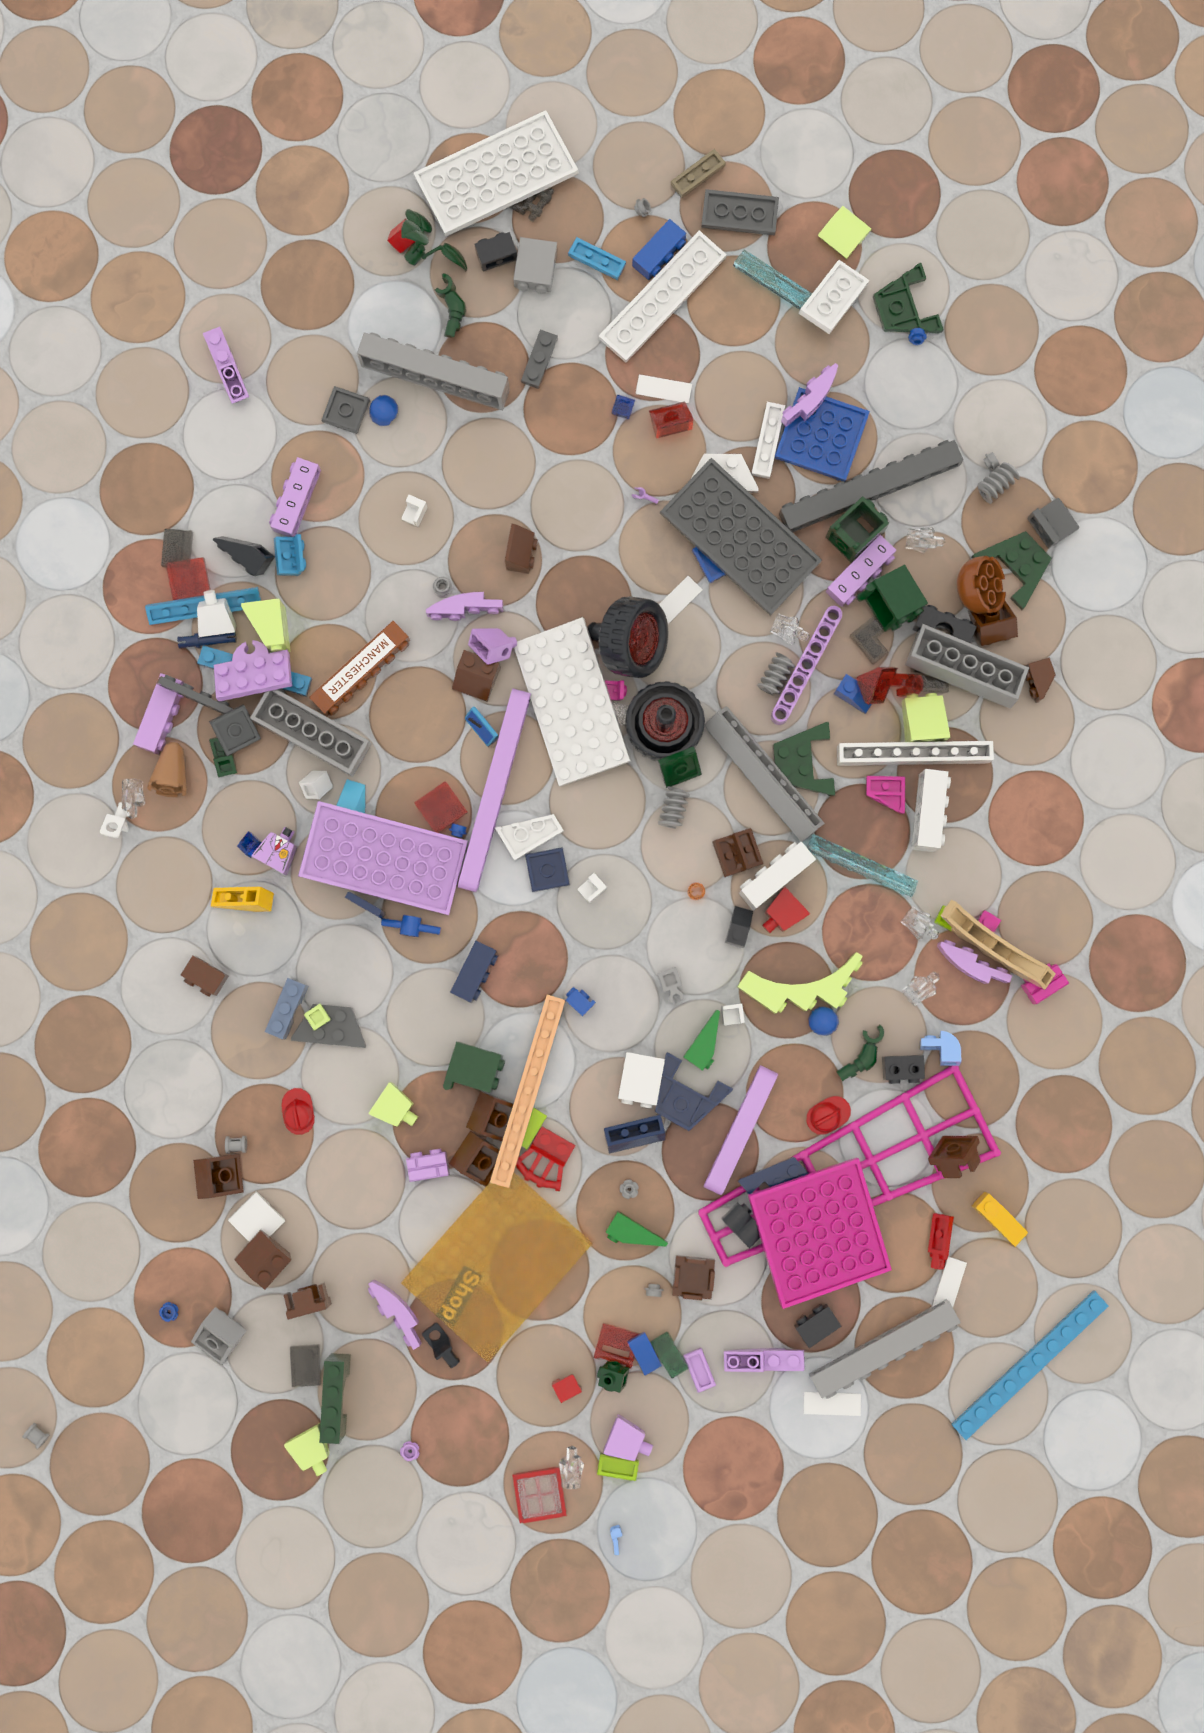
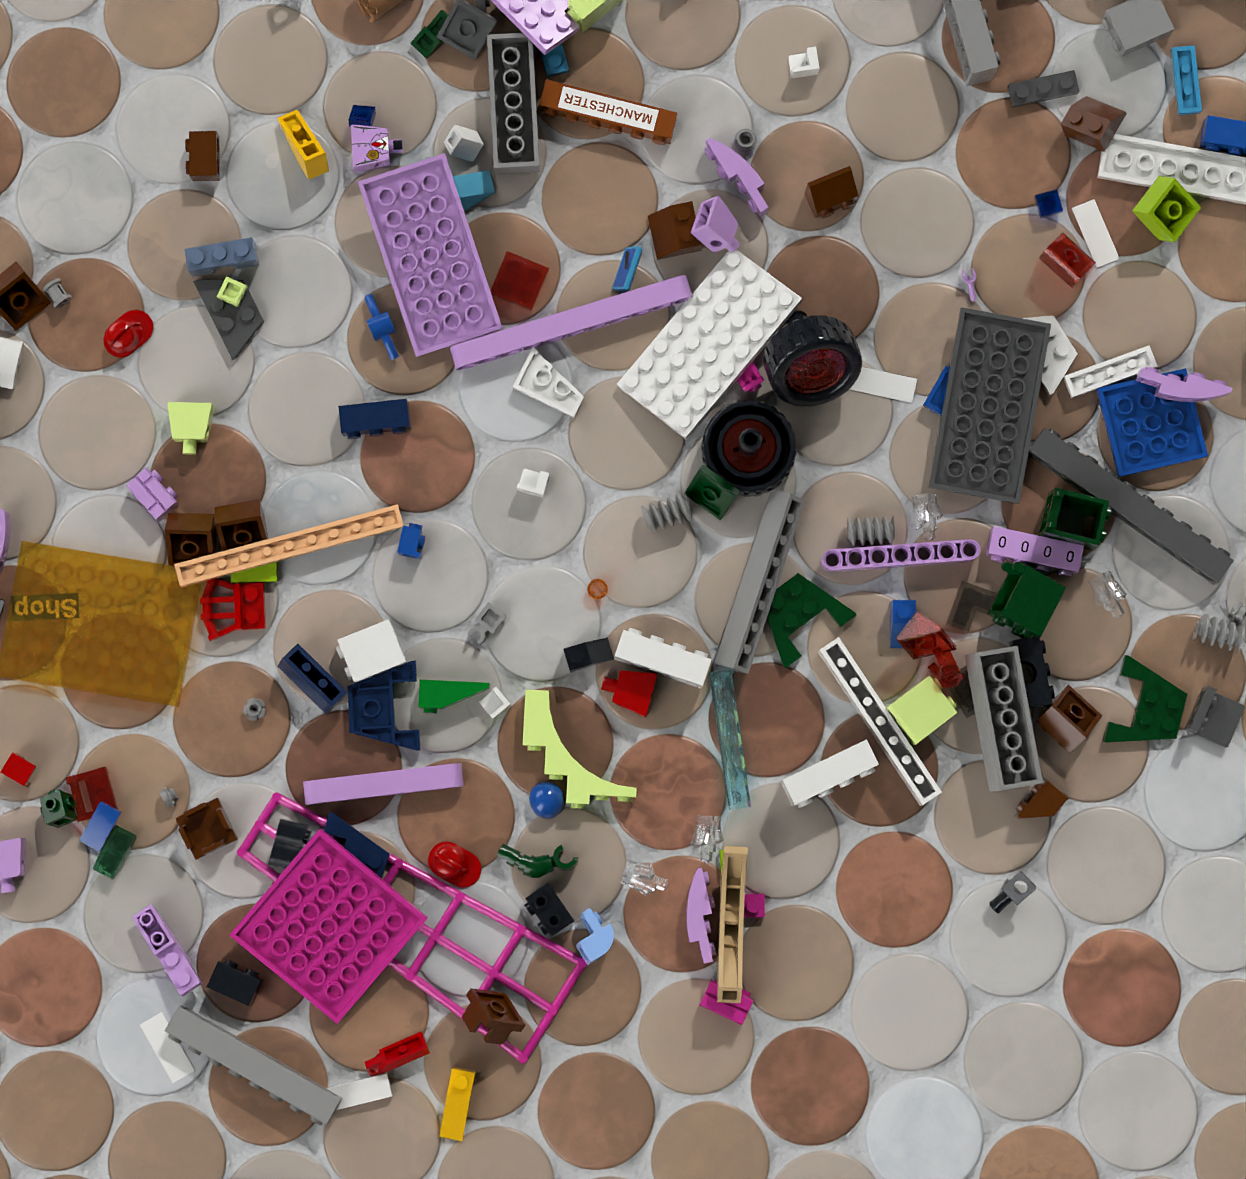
camera: 55 degrees right, 0 degrees up
(365, 905) = (372, 266): dark blue tile -> none
(458, 830) = (507, 312): blue plate -> none
(474, 1068) = (277, 477): dark green container -> none
(547, 869) = (524, 426): dark blue tile -> none
(586, 340) = (1092, 122): none -> reddish brown slope
(631, 1232) = (212, 734): green slope -> none
(680, 328) = (1166, 209): none -> lime brick
(699, 1370) = (118, 892): lavender tile -> none
(737, 852) = (663, 606): reddish brown slope -> none
(887, 791) = (823, 719): dark pink wing -> none
(981, 585) = (1098, 682): dark orange cylinder -> none
(1091, 738) = (1011, 893): none -> bracket

